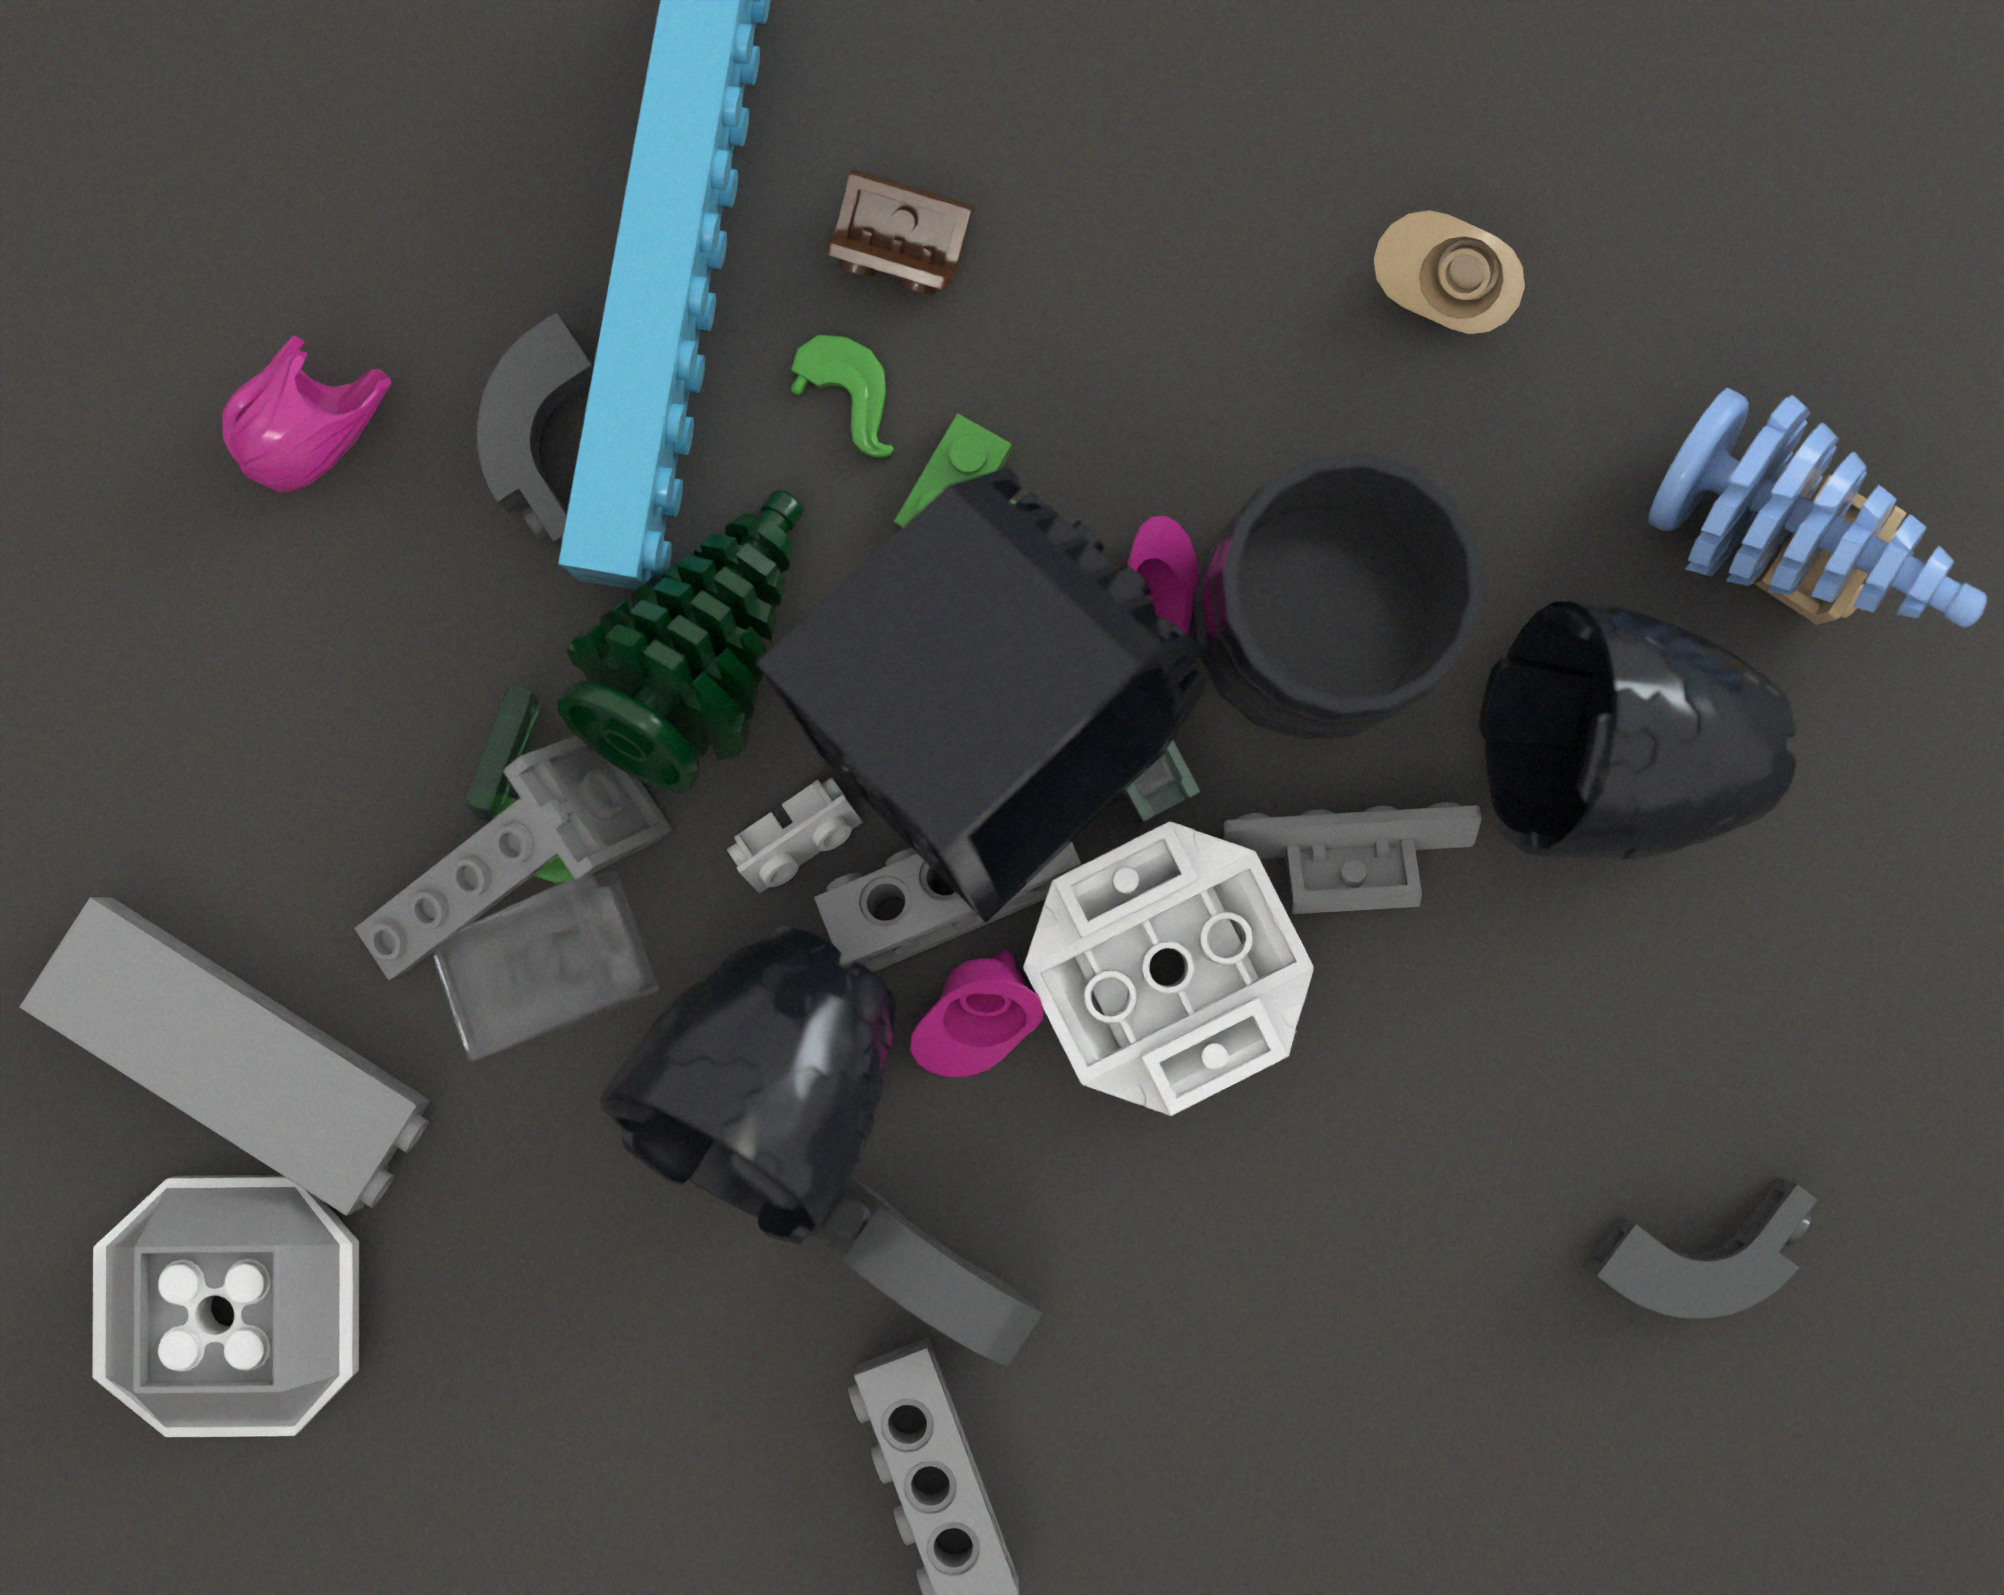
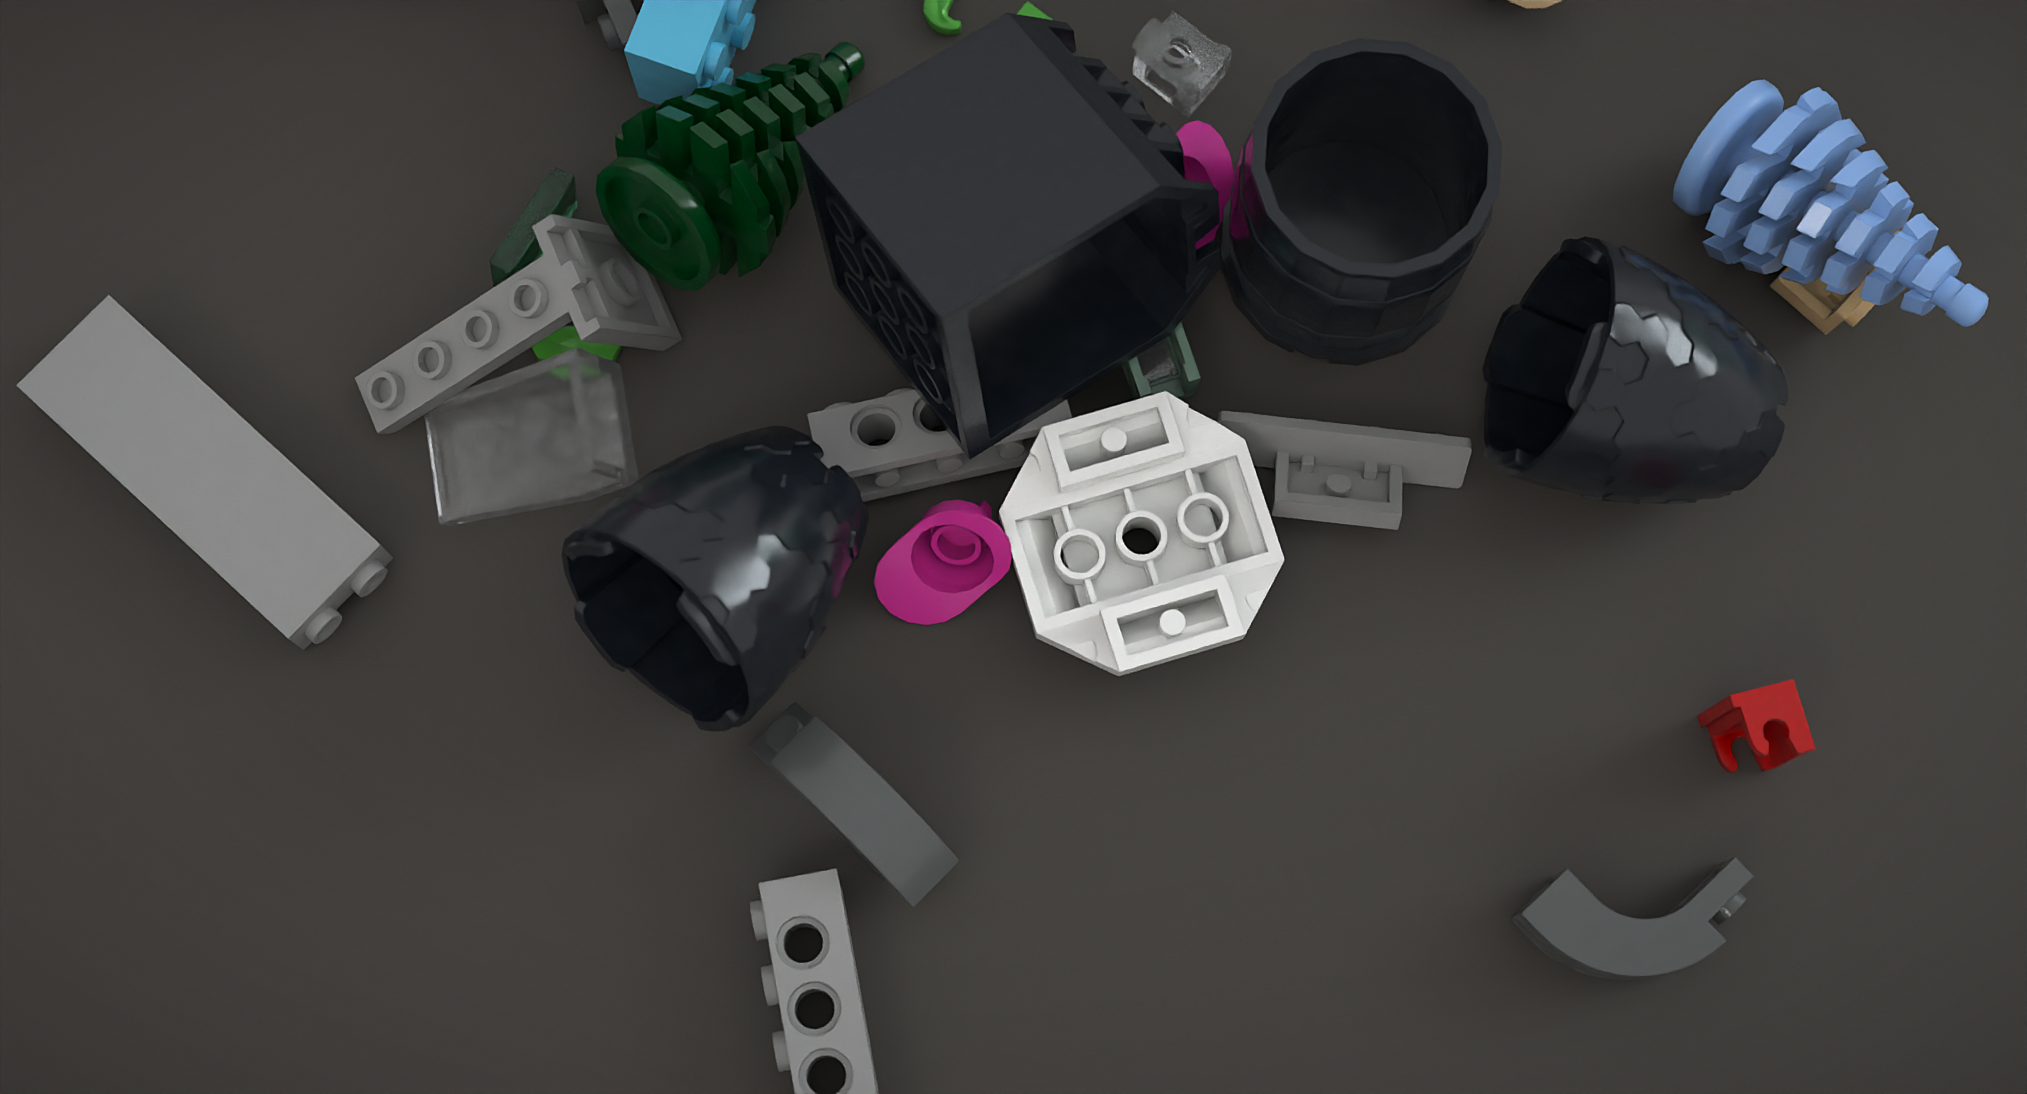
camera: 10 degrees right, 10 degrees down
(292, 1292) = (200, 759): light grey piece -> none
(772, 855) = (824, 354): white hinge -> none
(1128, 474) = (1179, 80): none -> clear brick
(1810, 1043) = (1767, 718): none -> red hinge

